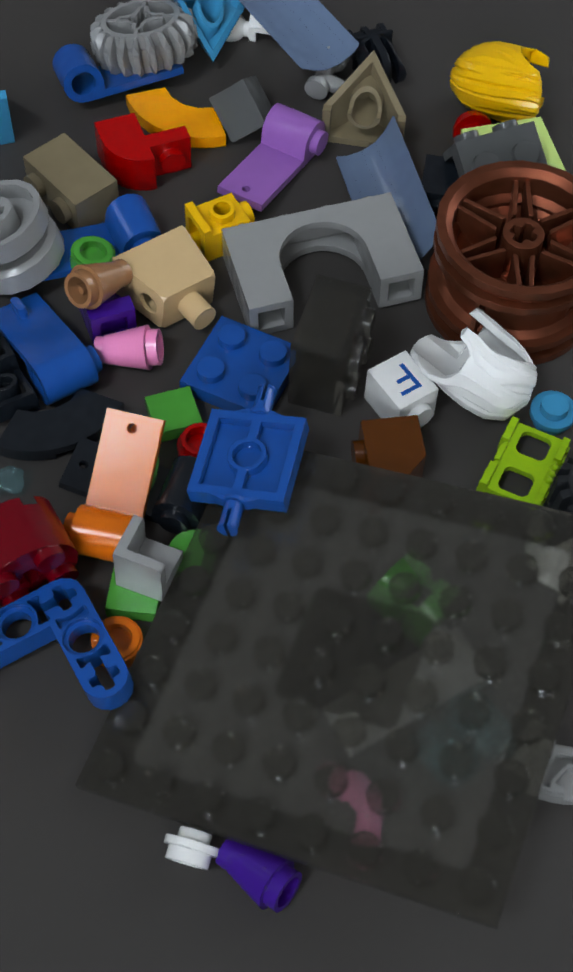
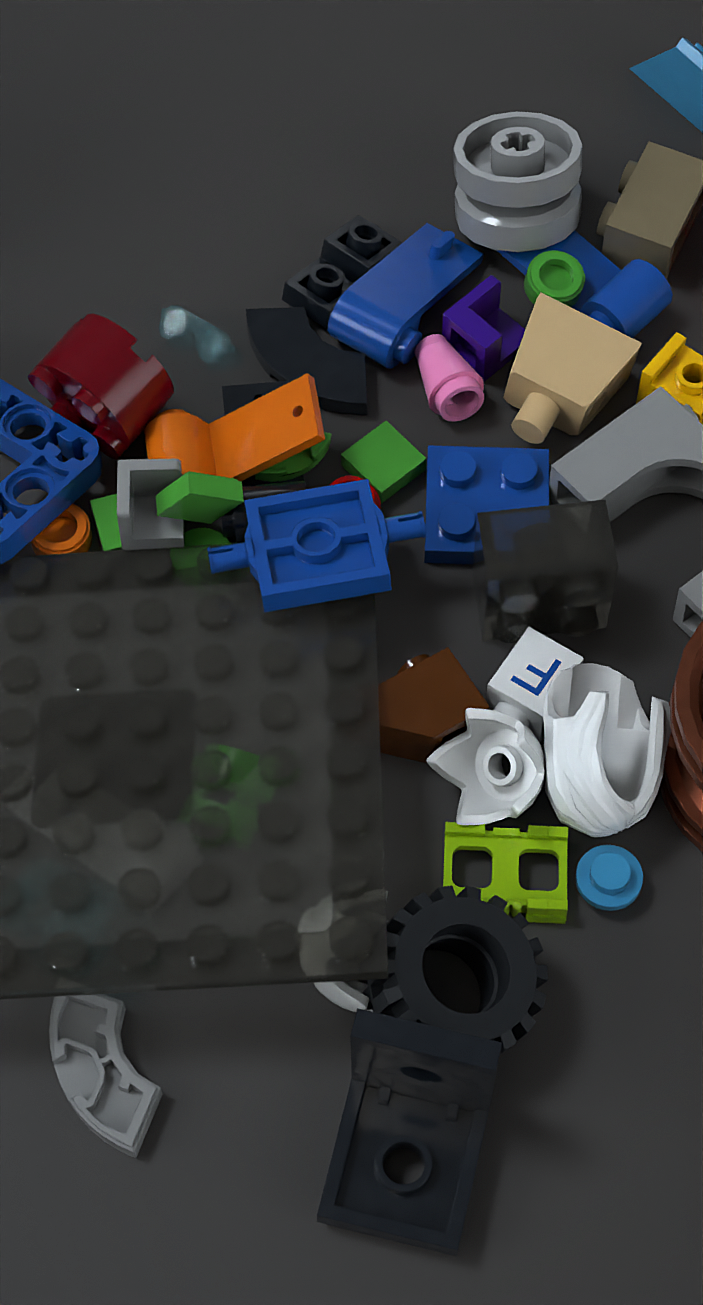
camera: 70 degrees right, 5 degrees up
(95, 283) = (488, 291): medium nougat cone -> none
(165, 519) = (199, 497): none -> bright green tile
(480, 430) = (475, 766): none -> white piece

